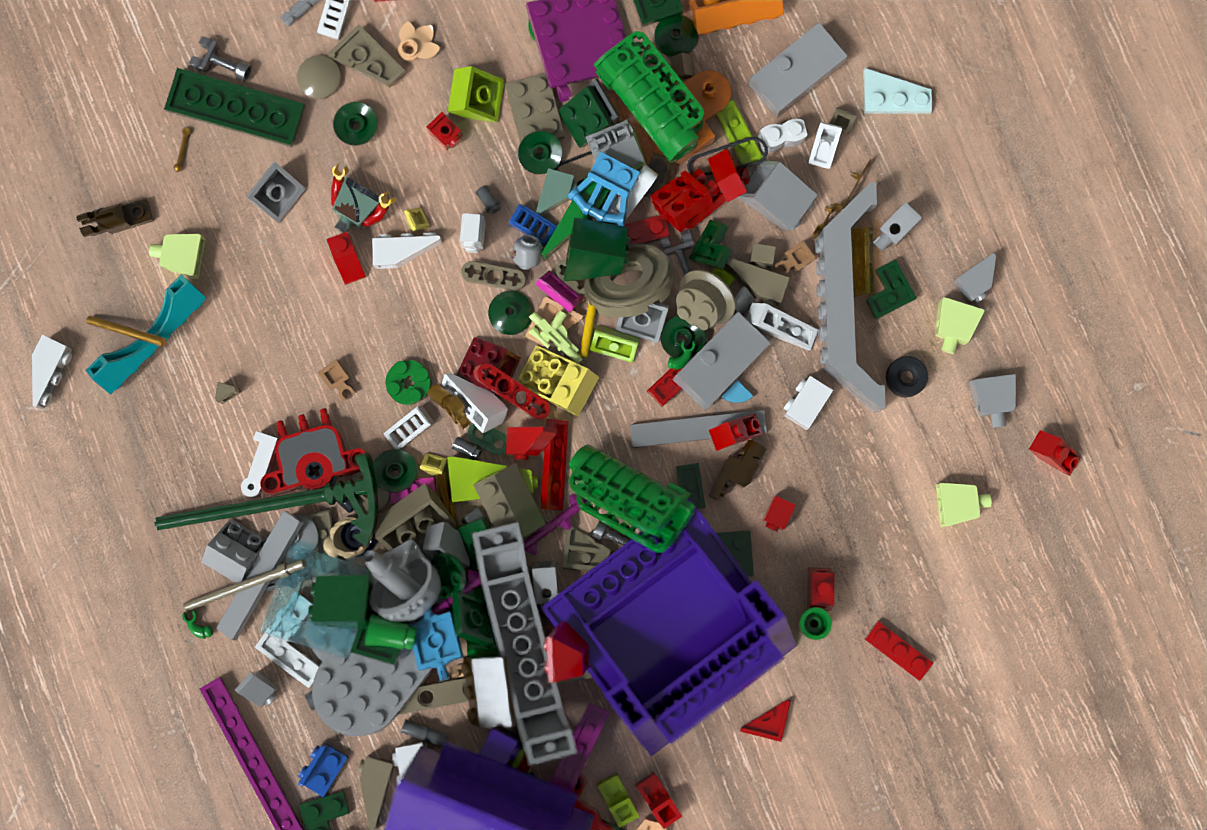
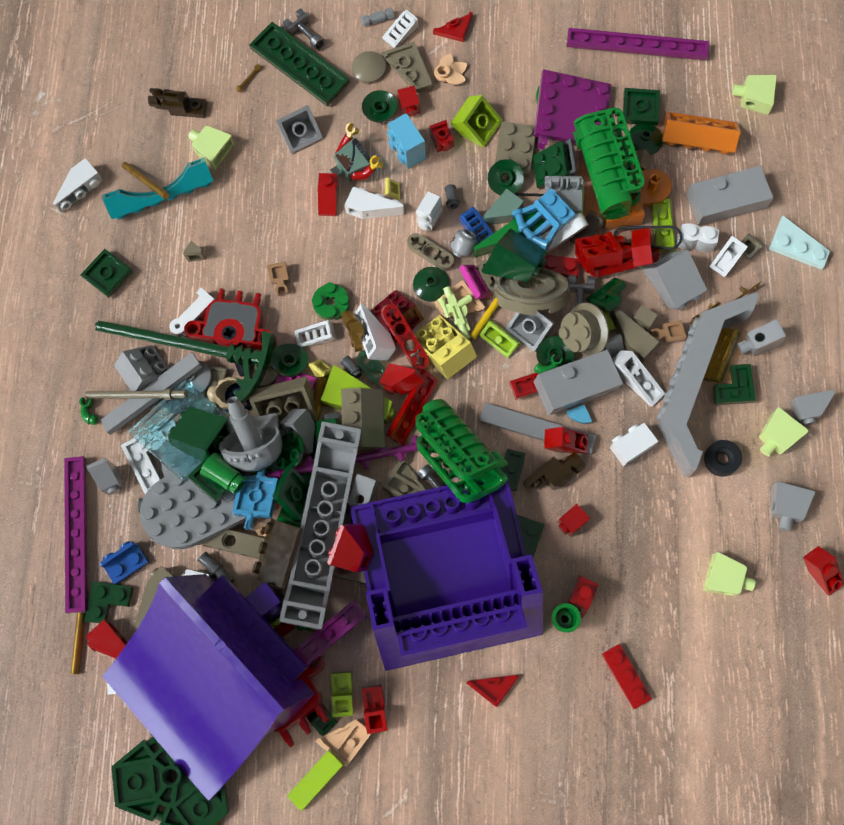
camera: 30 degrees right, 10 degrees down
(136, 459) = (106, 273): none -> dark green plate
(387, 103) = (408, 101): none -> red brick
(408, 156) = (406, 141): none -> medium azure brick

